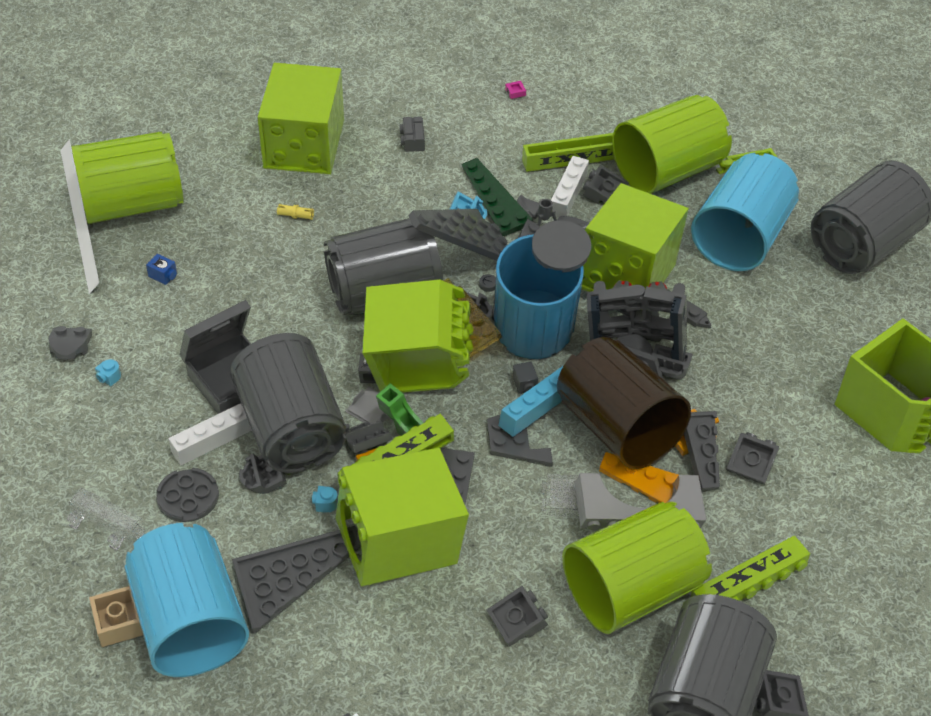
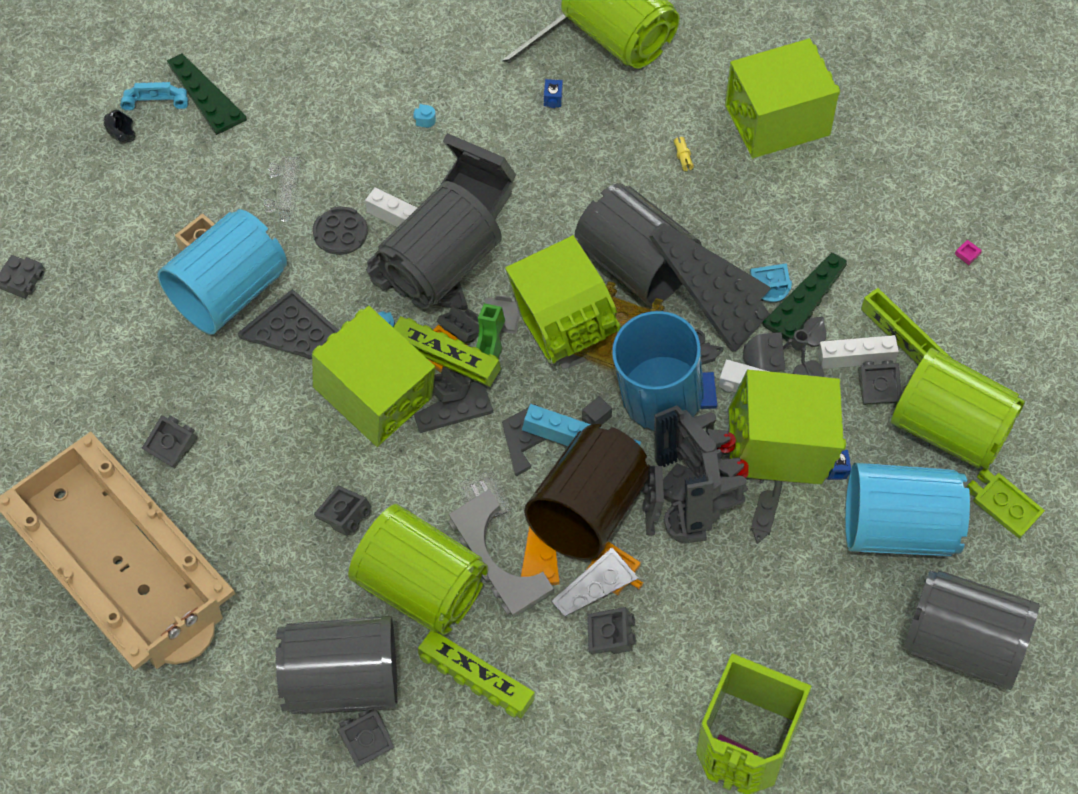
camera: 65 degrees right, 10 degrees up
(69, 341) = (440, 73): dark grey slope -> none
(413, 134) = (843, 196): dark grey brick -> none
(561, 246) = (689, 353): dark grey tile -> none

